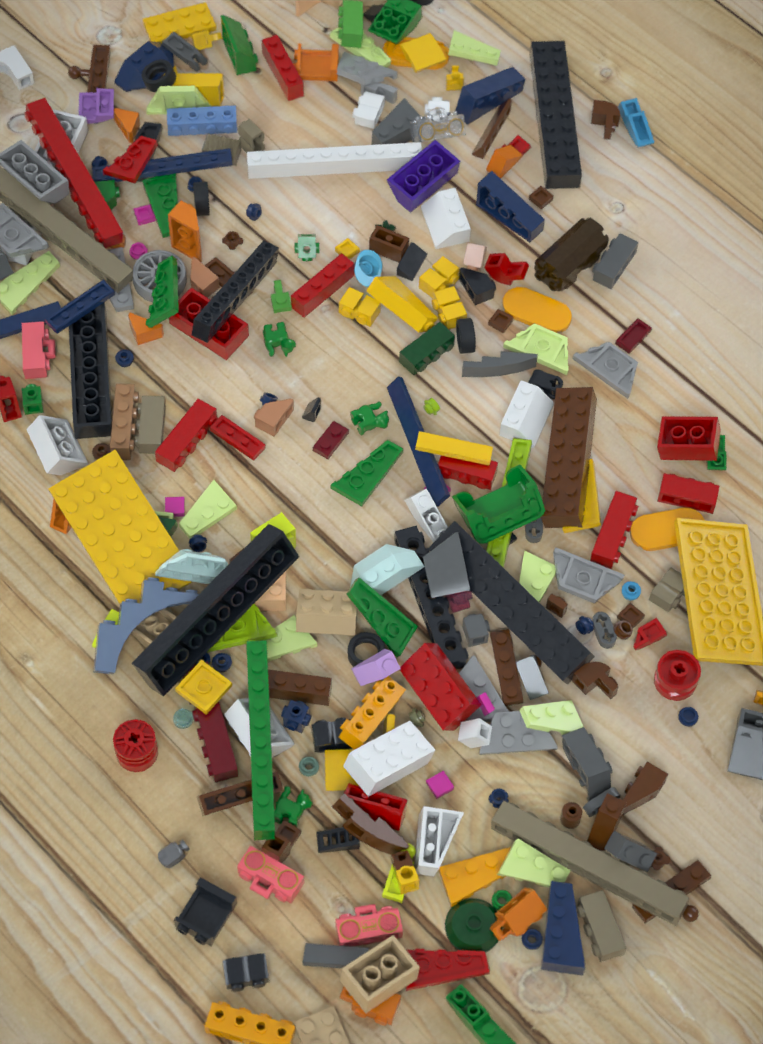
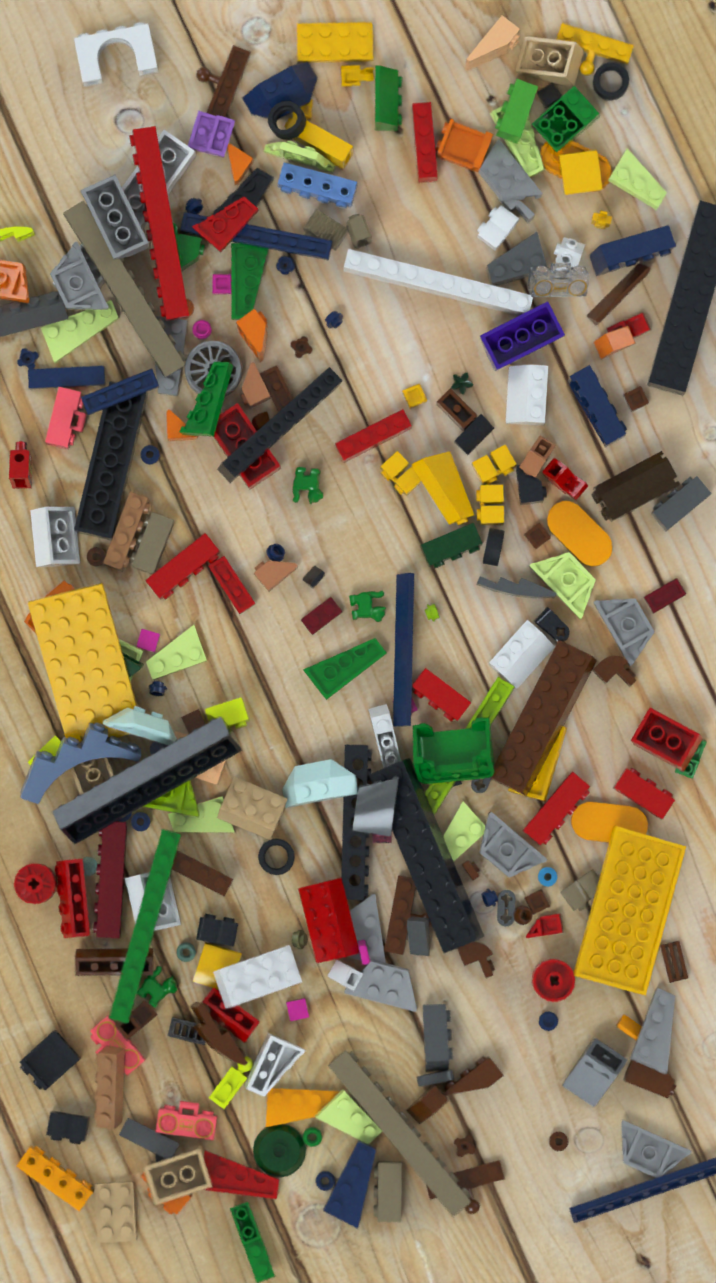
camera: 20 degrees right, 25 degrees up
(32, 399) = (46, 481): green brick -> none
(172, 854) = (38, 995): flat silver arm -> none
(178, 748) = (72, 898): none -> red brick
(184, 51) = (327, 83): dark grey hinge -> none
(201, 198) = (284, 290): black tyre -> none
(203, 687) = (113, 850): yellow plate -> none
(277, 912) = (109, 1087): none -> medium nougat brick
(280, 299) = (326, 437): bright green plate -> none
(296, 716) = (197, 905): dark blue brick -> none
(310, 241) = (372, 384): brick -> none
(367, 267) = (424, 434): medium azure piece -> none
(372, 712) = (258, 925): light orange brick -> none
(376, 667) = (277, 882): lavender slope -> none
(385, 619) = (302, 832): green wing -> none
(389, 723) = (270, 940): yellow tile -> none
(405, 872) = (233, 1086): yellow leg -> none
(454, 448) = (432, 676): yellow tile -> none
(475, 629) = (386, 868): dark grey brick -> none
(498, 793) = (345, 1046): dark blue plate -> none
(518, 914) = (319, 1158): orange brick -> none
(552, 716) = (422, 983): yellowish green wing -> none
(571, 815) = (402, 1076): reddish brown brick -> none
(615, 399) = (614, 665): none -> reddish brown brick
(630, 851) = (439, 1137): dark grey brick -> none
(747, 828) = (554, 1136): none -> reddish brown plate

